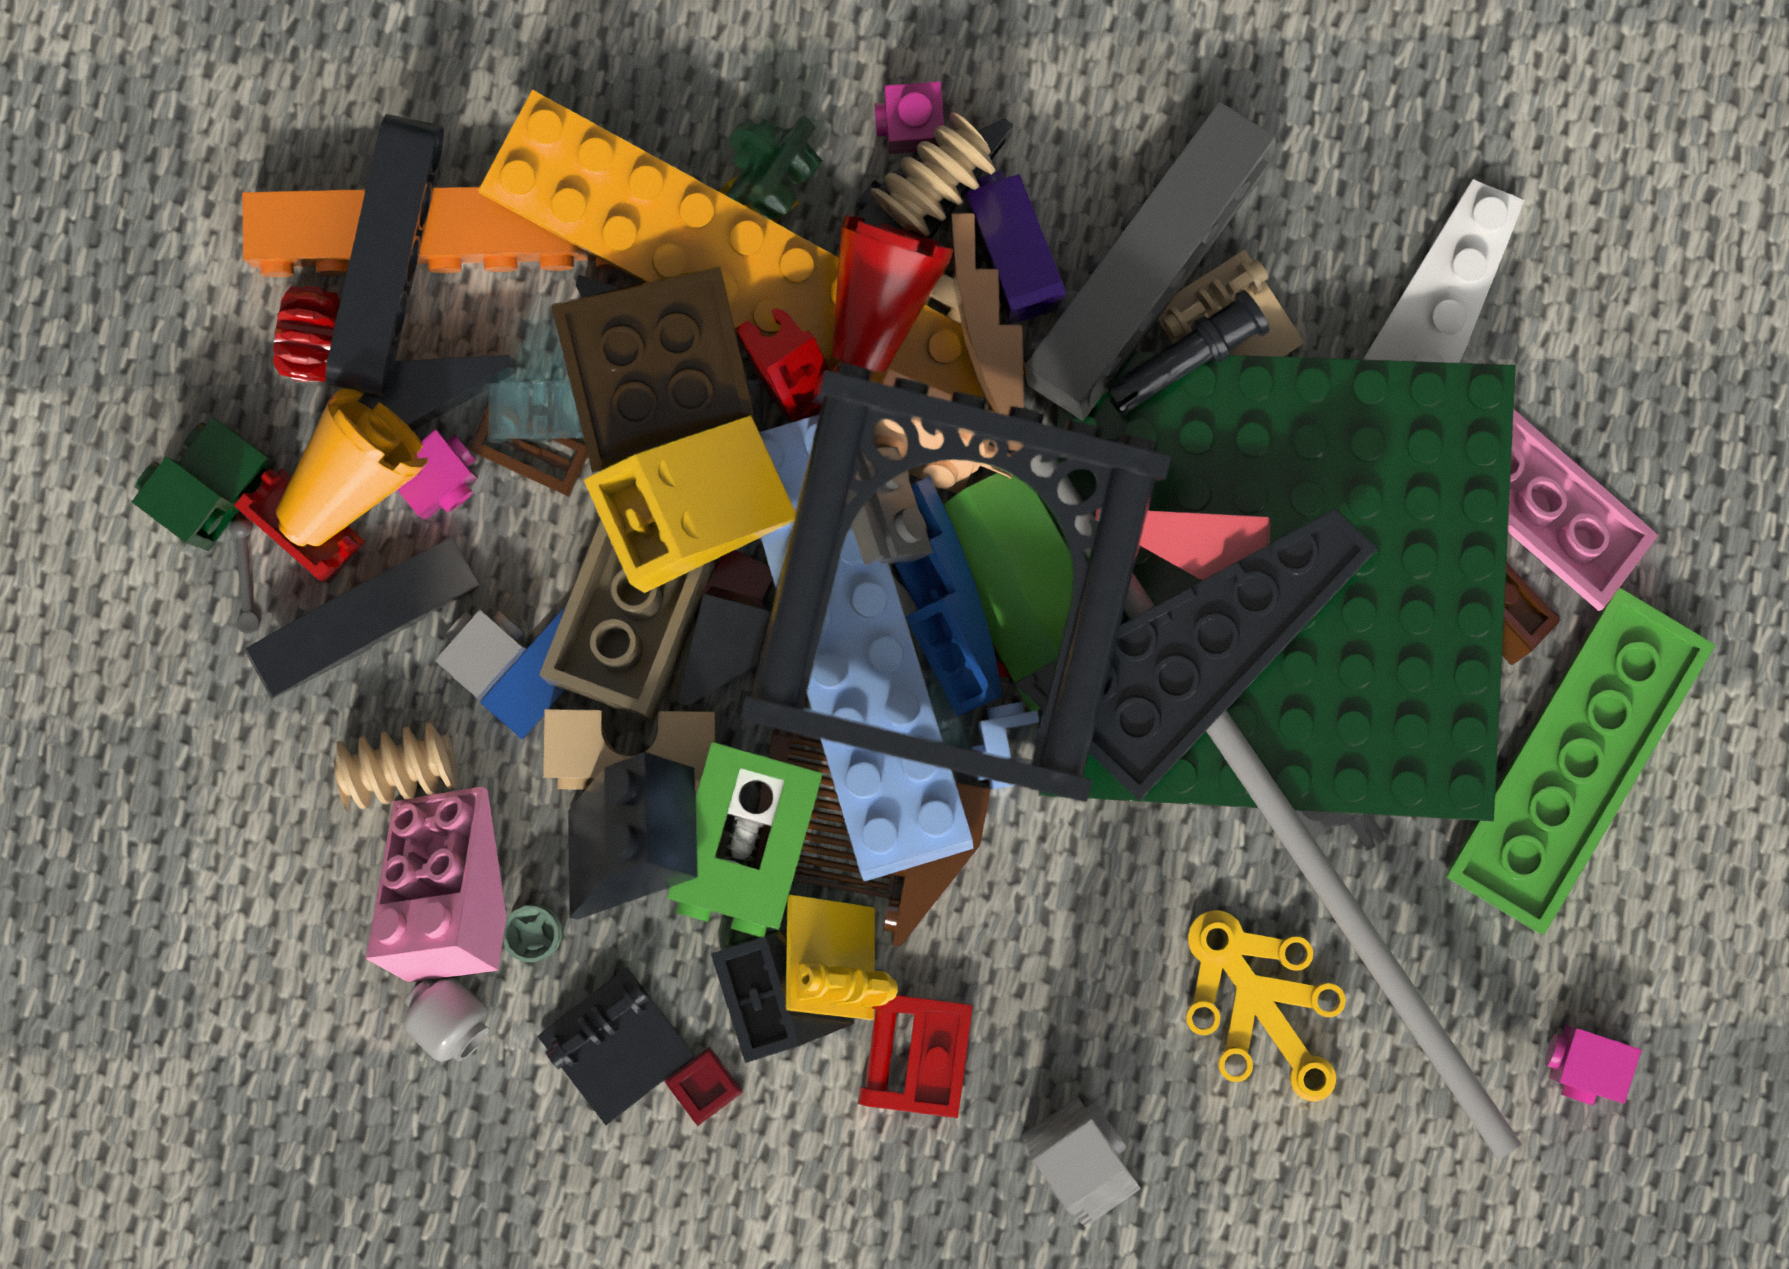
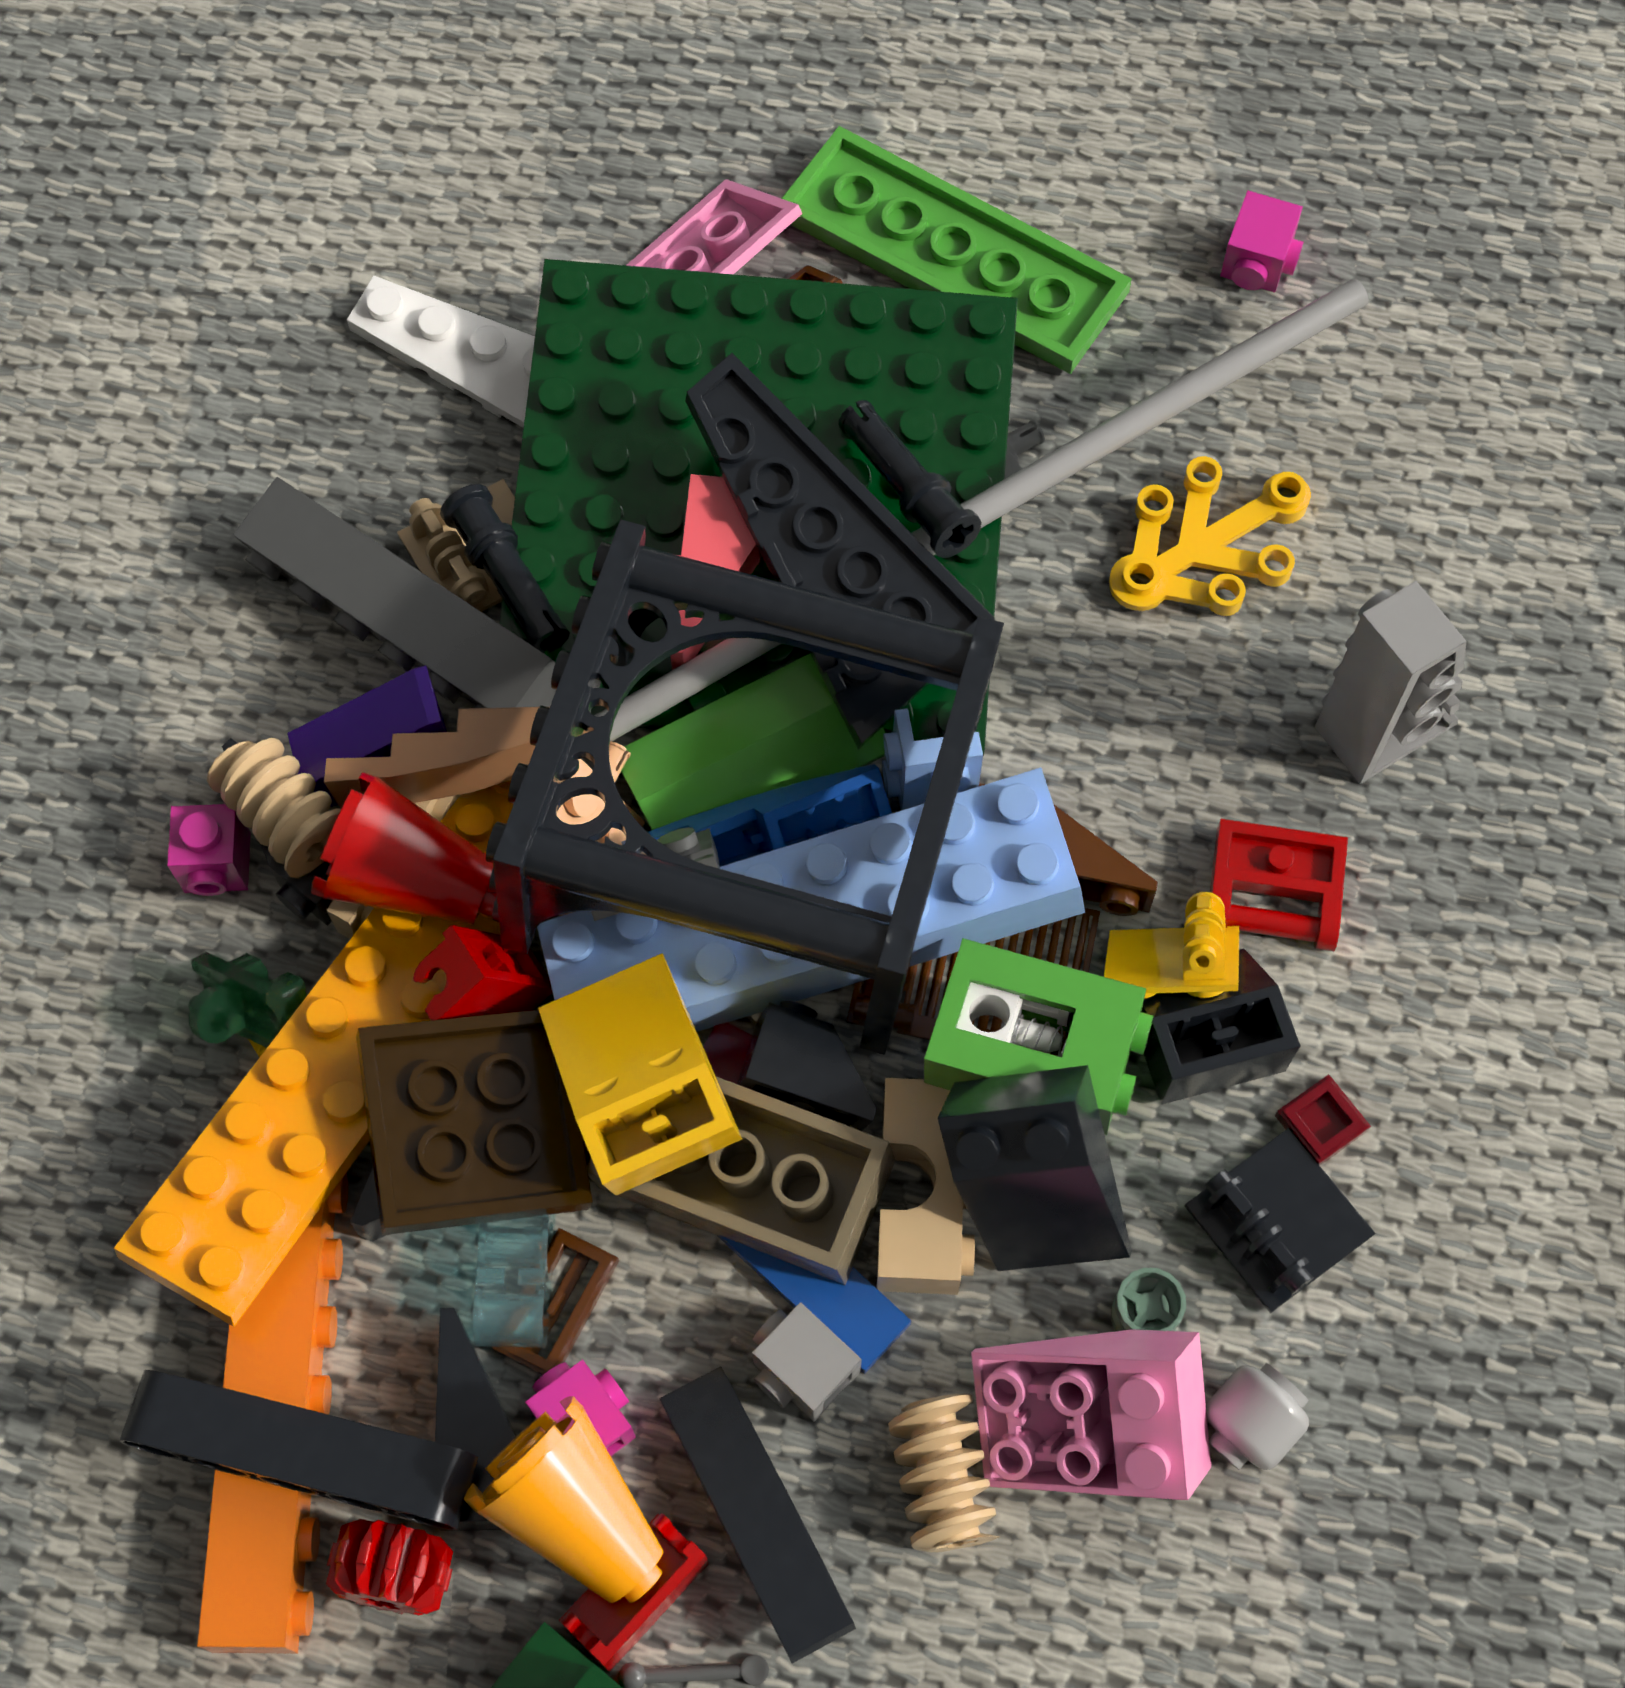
camera: 85 degrees left, 20 degrees down
(1259, 732) = (923, 495): none -> black pin

